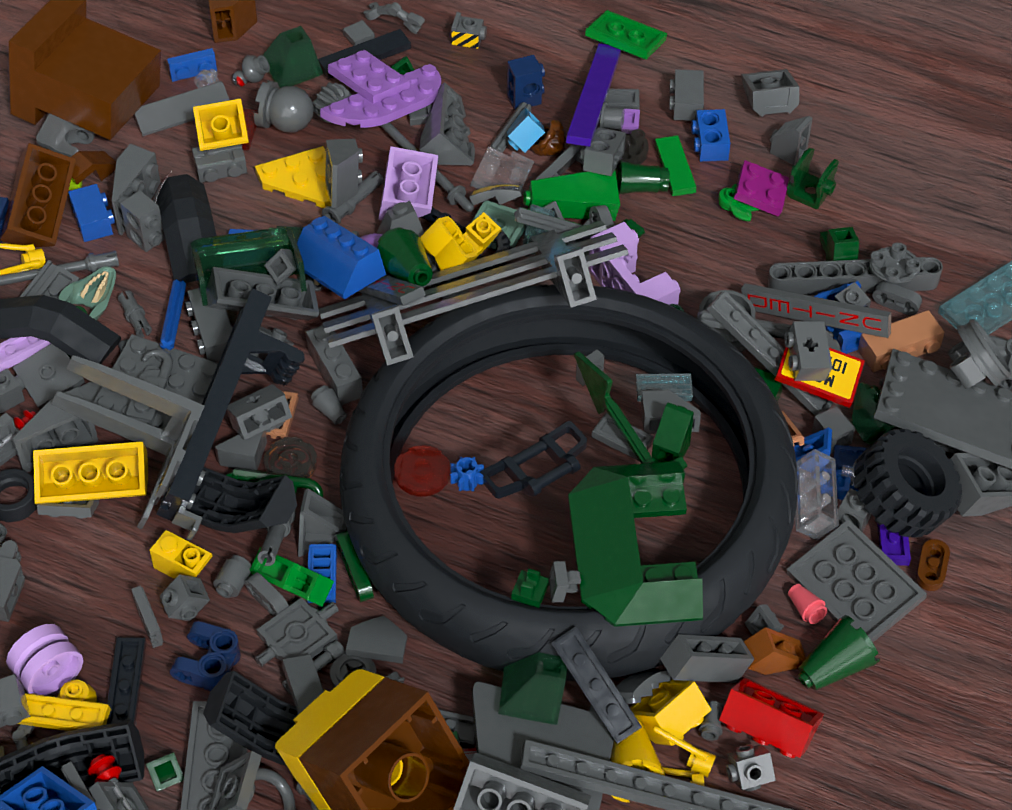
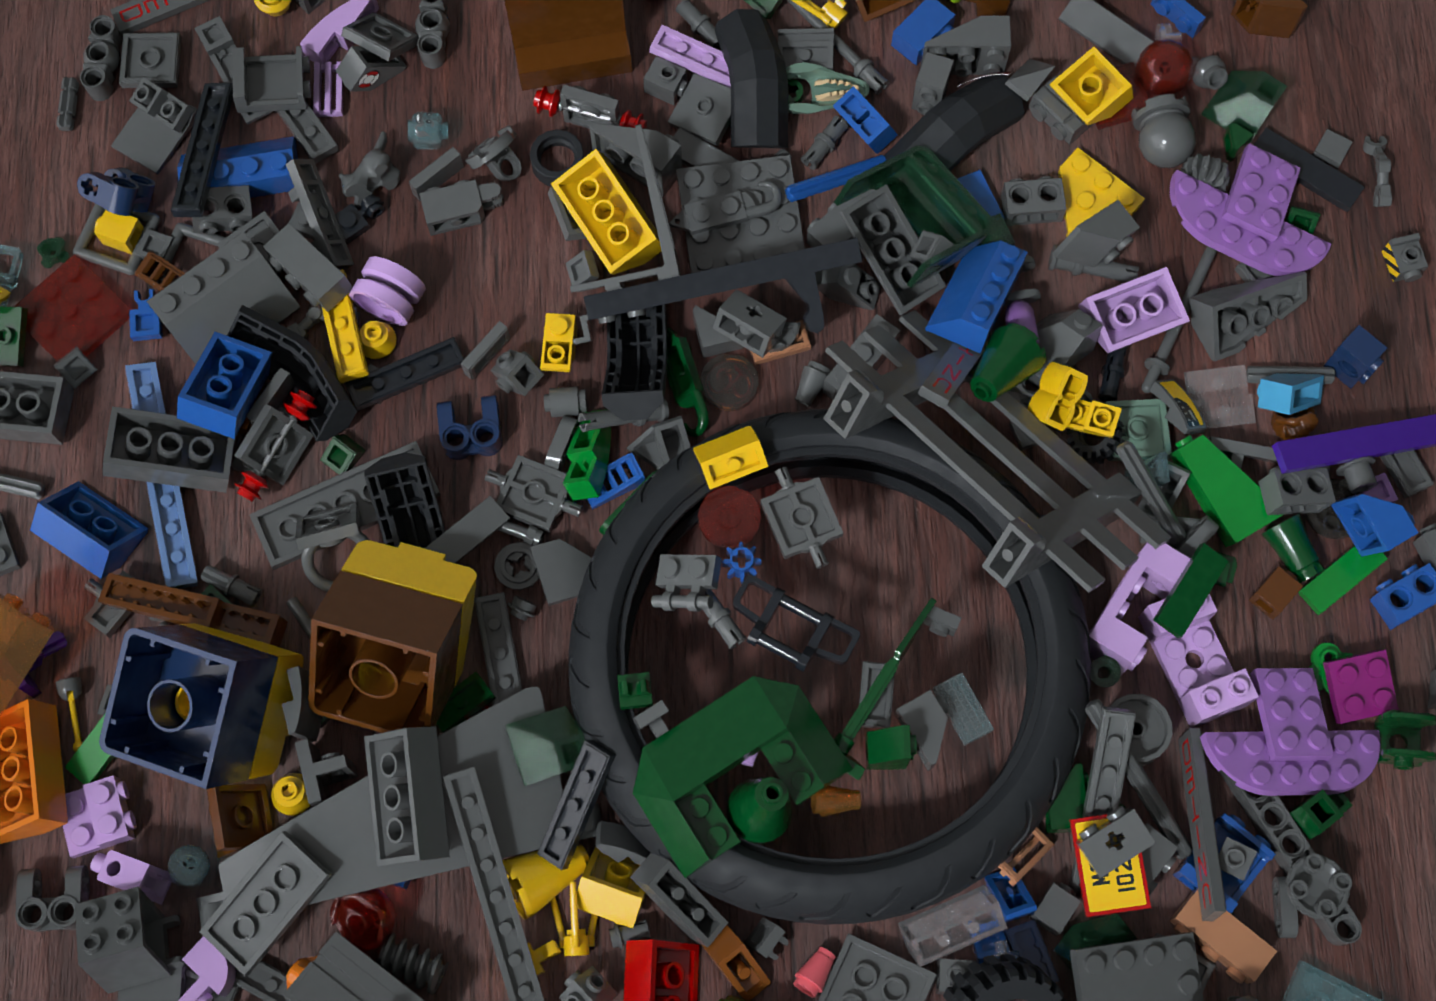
camera: 65 degrees right, 20 degrees up
(124, 517) = (582, 268): none -> dark grey plate
(139, 275) = (865, 120): none -> blue brick
(182, 162) = (1030, 78): none -> dark grey slope
(232, 83) = (1150, 60): none -> clear red cylinder
(278, 206) = (1035, 208): none -> dark grey brick
(315, 77) = (1235, 140): none -> dark green slope
(376, 442) = (730, 457): none -> yellow panel
(454, 421) = (801, 517): none -> dark grey plate
(454, 511) = (686, 572): none -> dark grey plate
(502, 509) = (721, 619): none -> dark grey pin
(645, 231) = (1190, 590): none -> dark green tile
(654, 120) = (1374, 523): none -> blue slope
(667, 203) = (1276, 592): none -> reddish brown brick
(674, 532) = (760, 809): none -> dark green cone
(694, 493) = (835, 800): none -> clear orange cone
(712, 270) = (1202, 691): none -> lavender plate
(791, 237) = (1295, 748): none -> medium lavender plate

